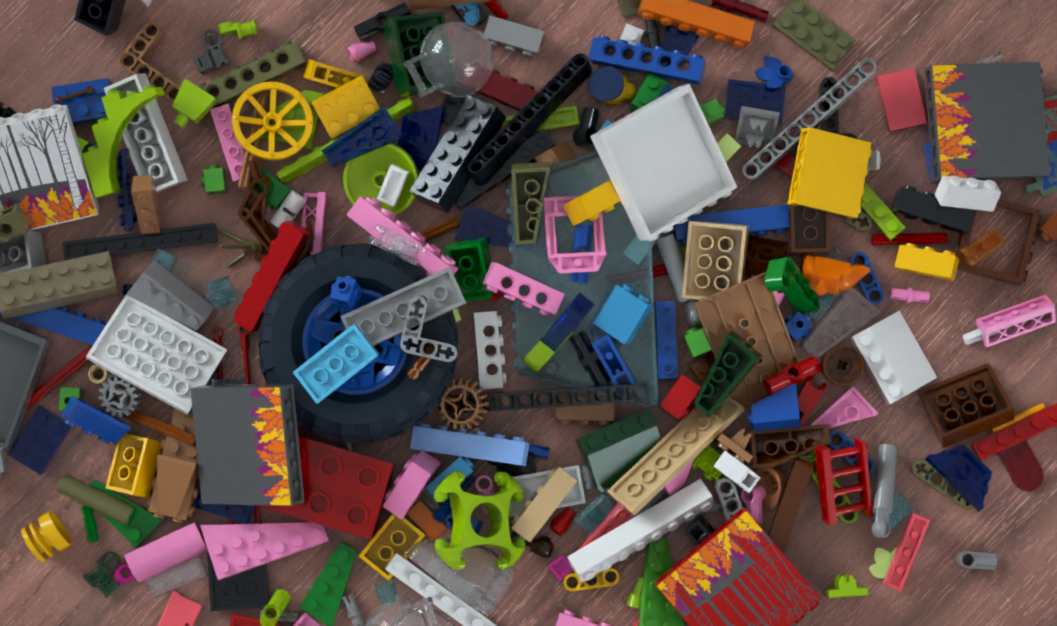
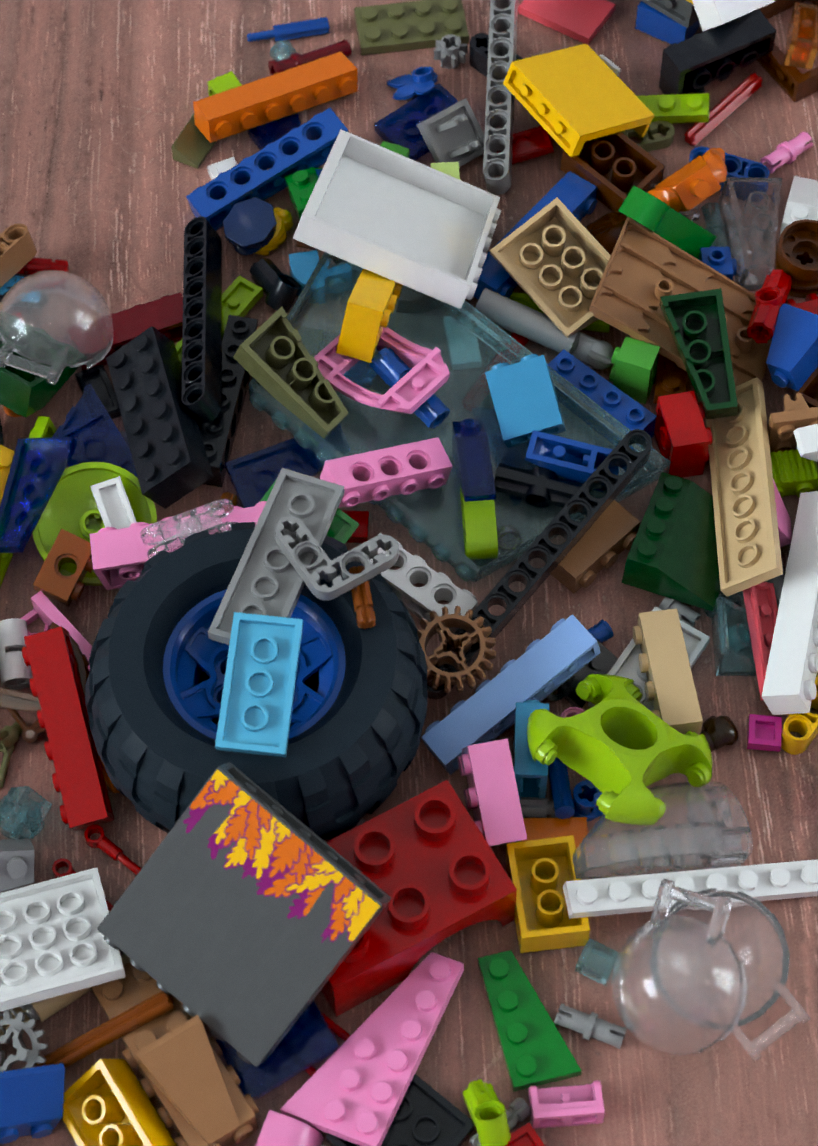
camera: 50 degrees left, 25 degrees down
(334, 192) = (64, 550): none -> dark orange brick
(345, 292) = (181, 597): blue brick -> none
(514, 36) = (106, 265): light grey brick -> none
(562, 522) = (708, 684): red cone -> none
(652, 33) = (239, 148): pearl dark grey pin -> none
(809, 75) = (450, 51): none -> light grey gear
(927, 262) = (768, 103): yellow brick -> none

